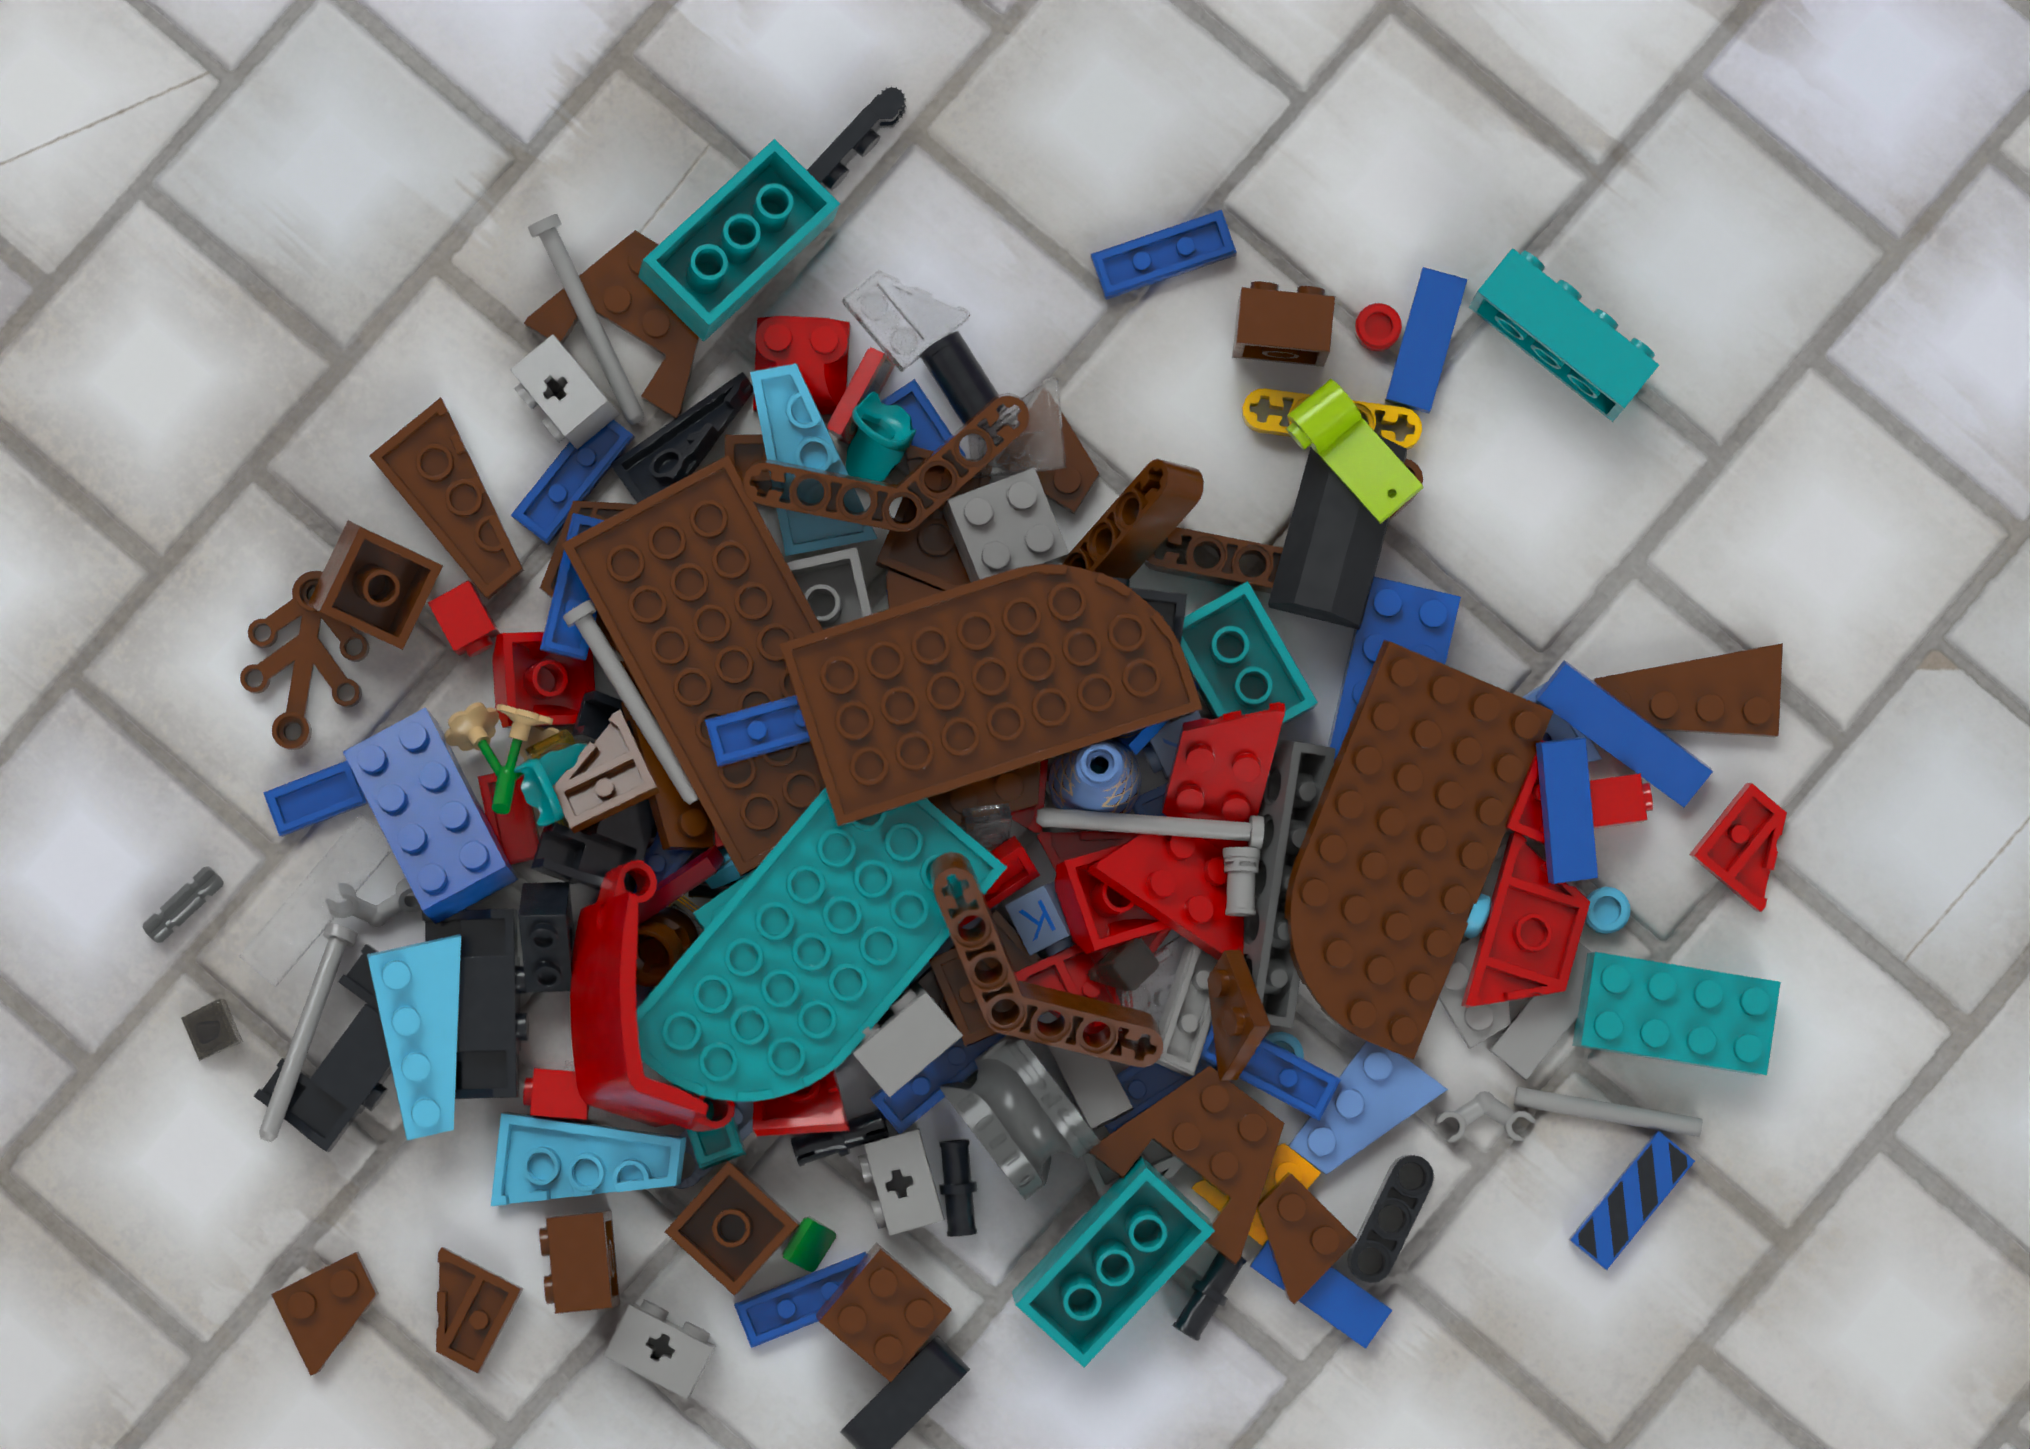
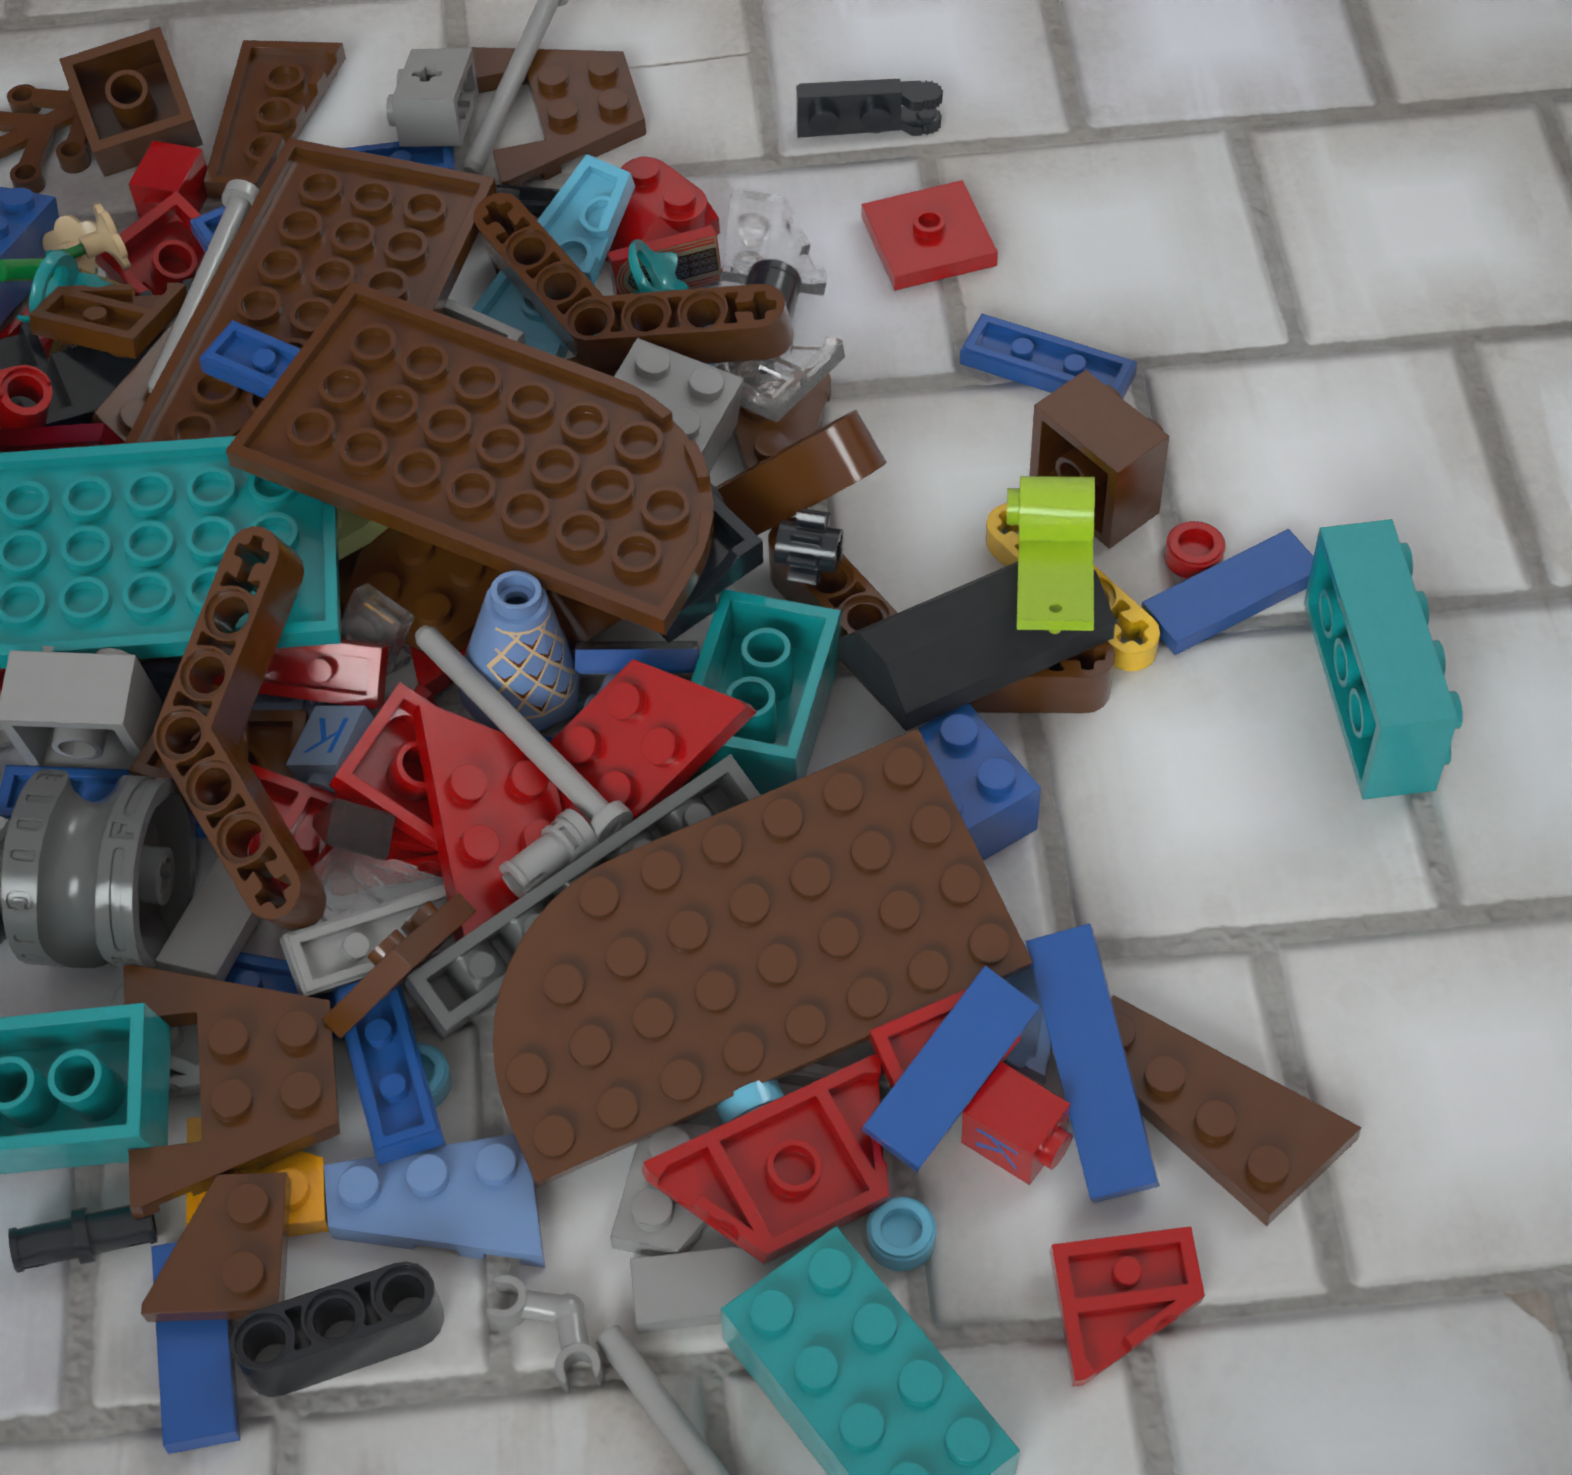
camera: 45 degrees right, 30 degrees down
(738, 240) = (690, 84): teal brick -> none
(992, 212) = (929, 235): none -> red plate
(1192, 556) = (809, 546): none -> black gear

